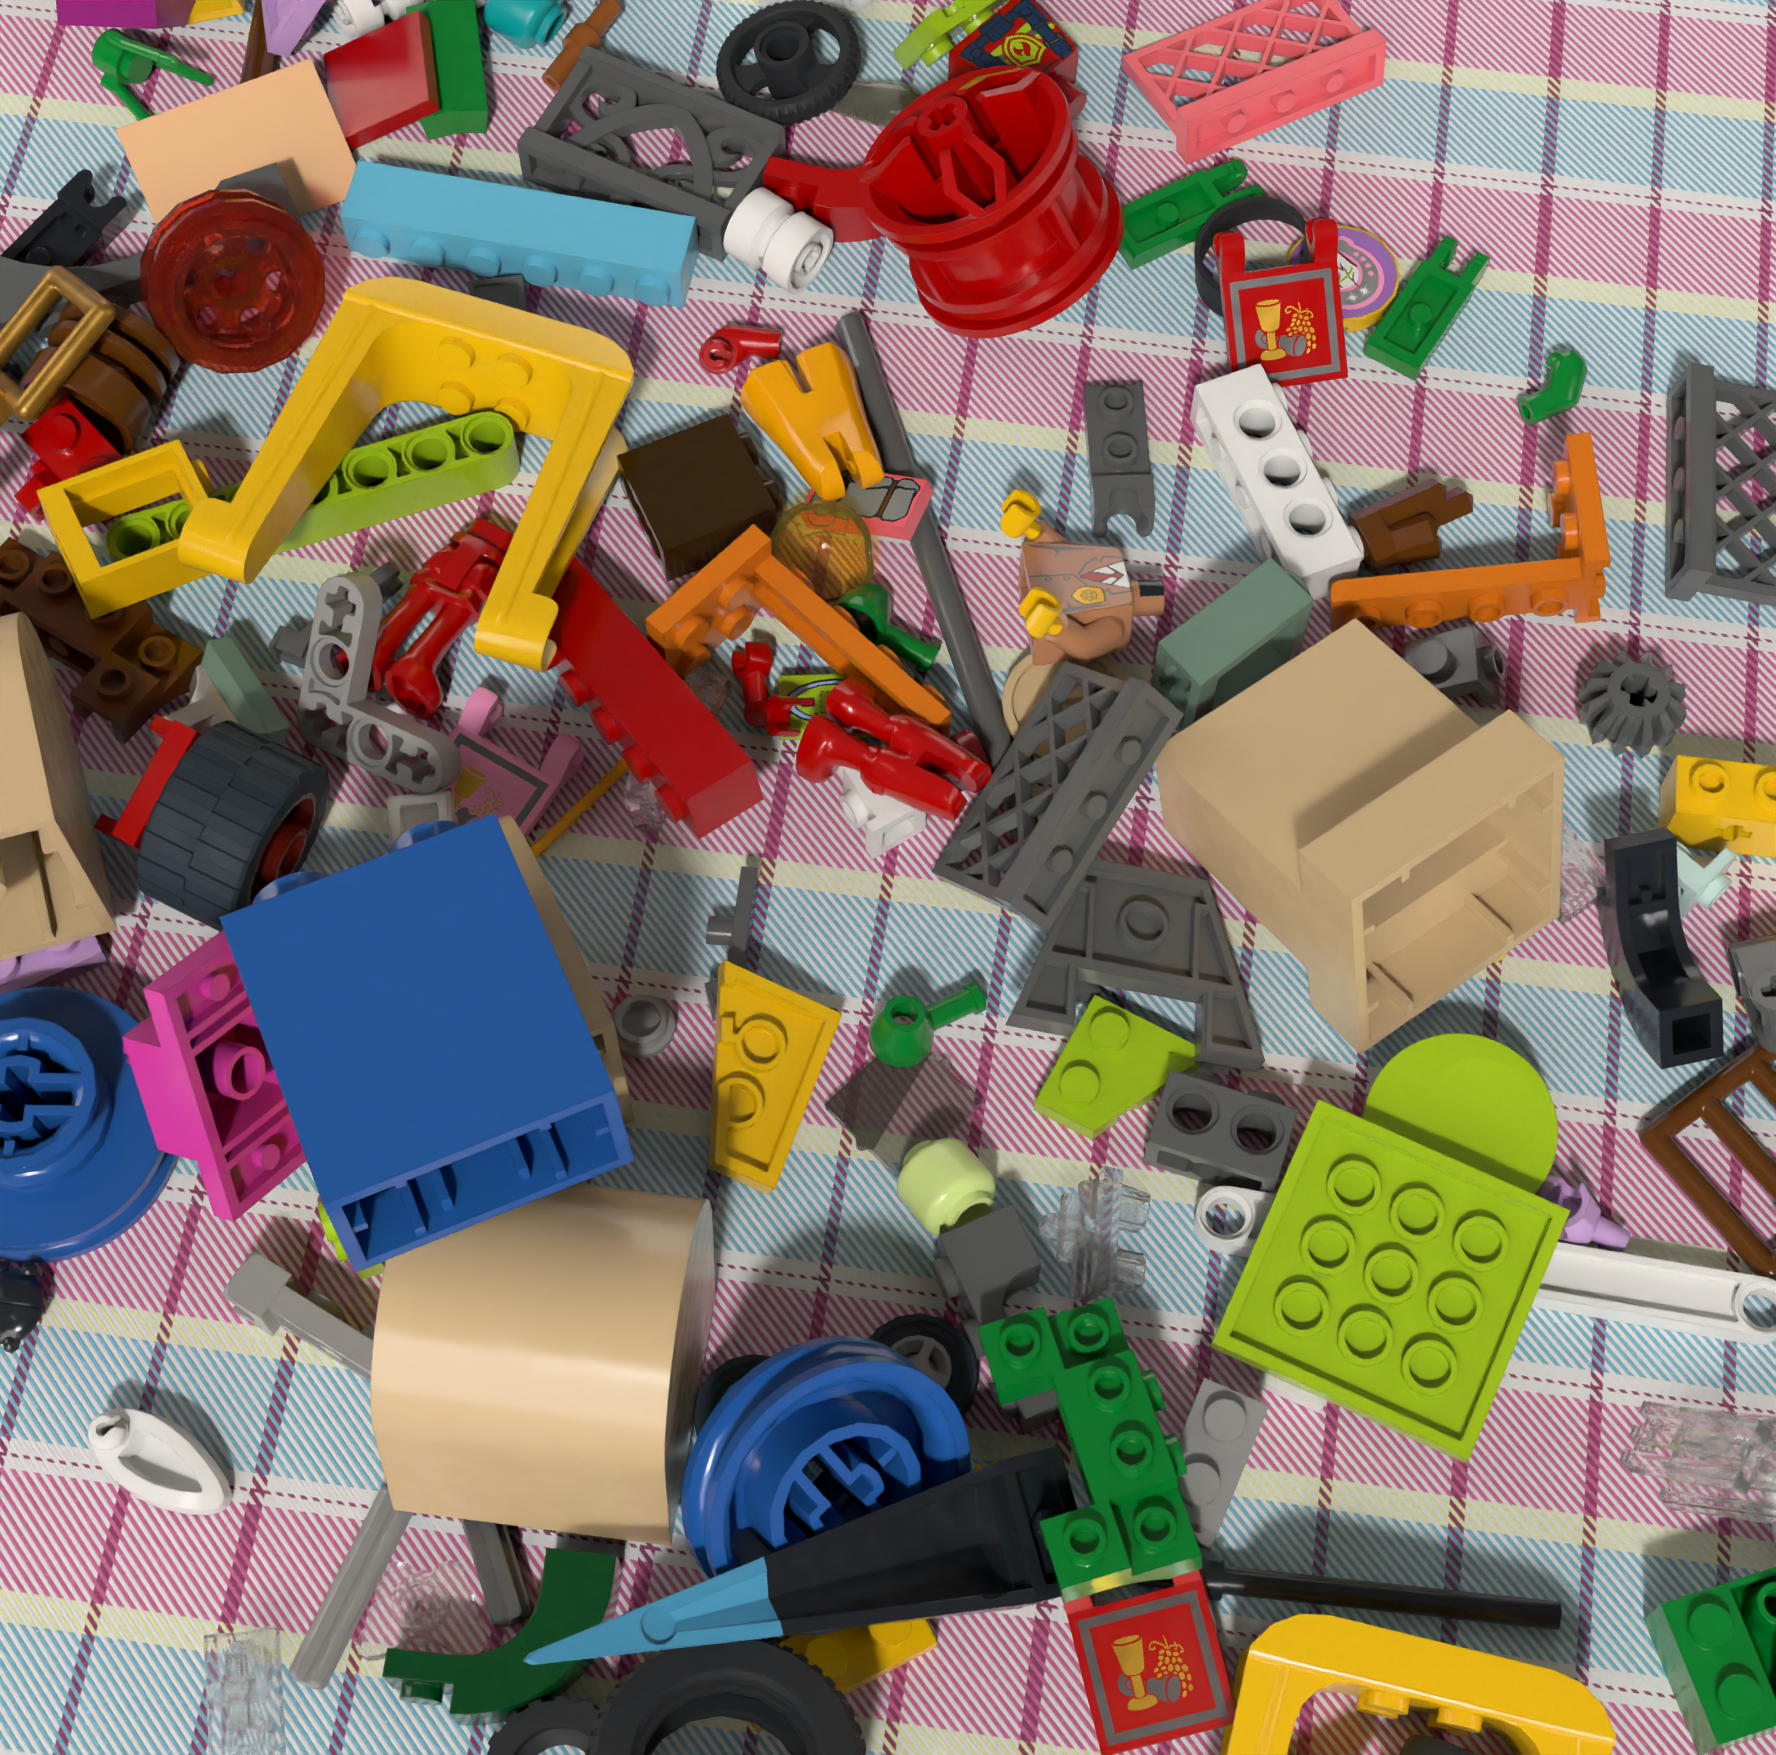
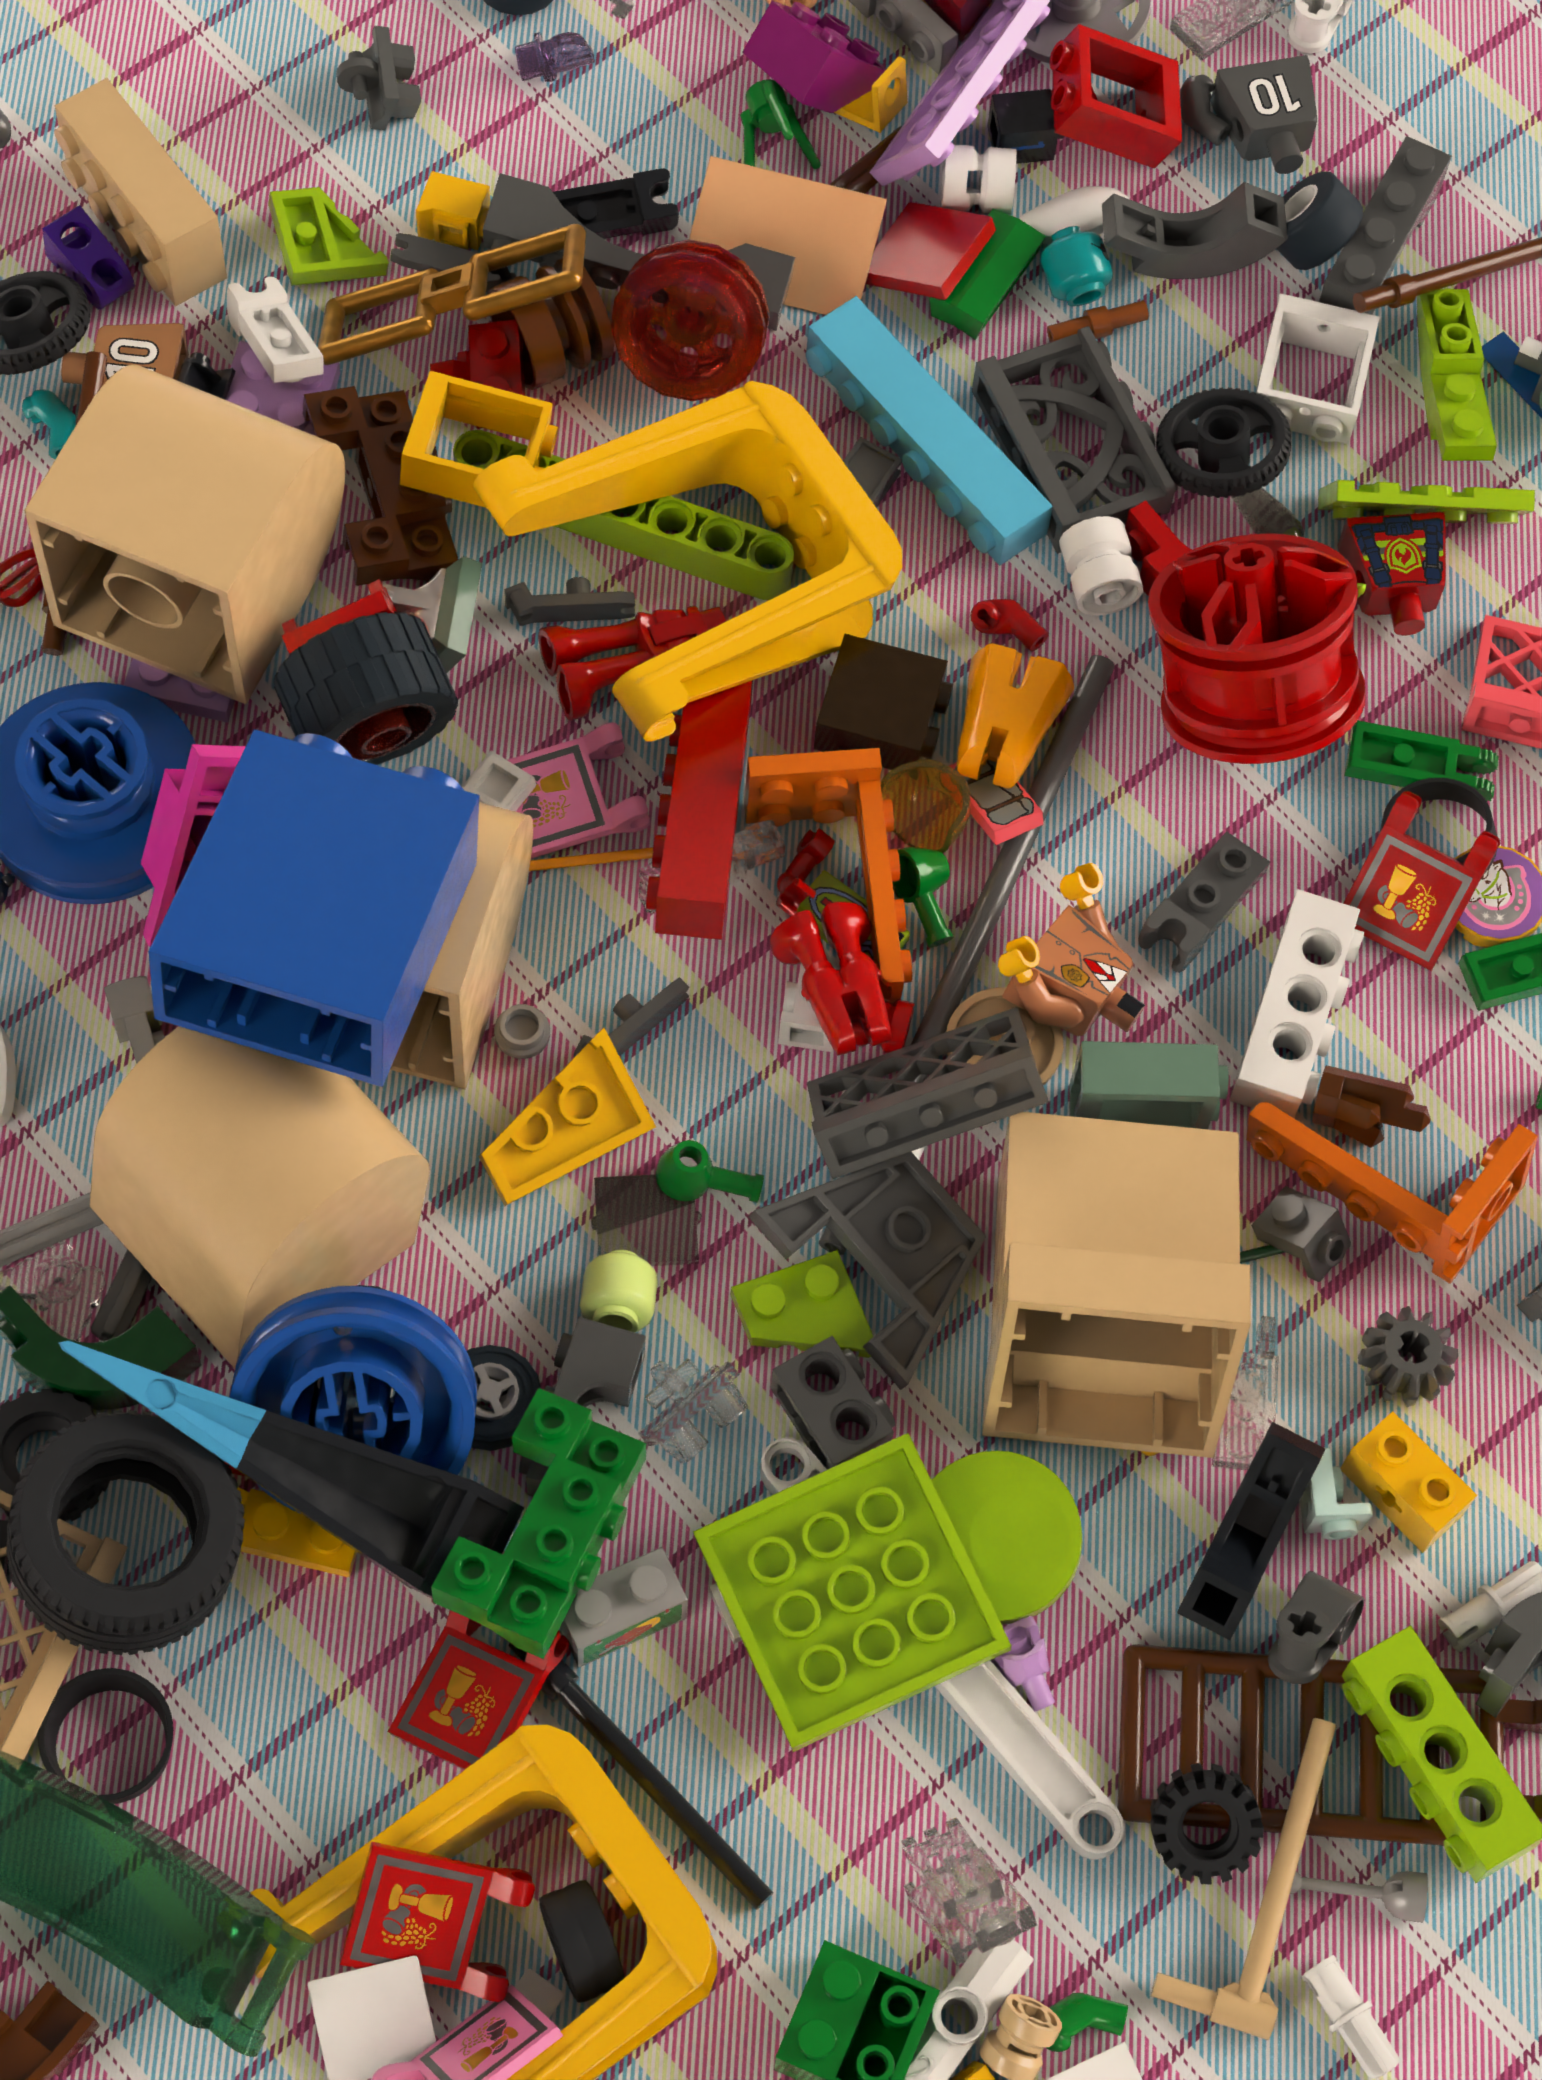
camera: 35 degrees right, 0 degrees up
(346, 694) = (558, 608): light grey beam -> none

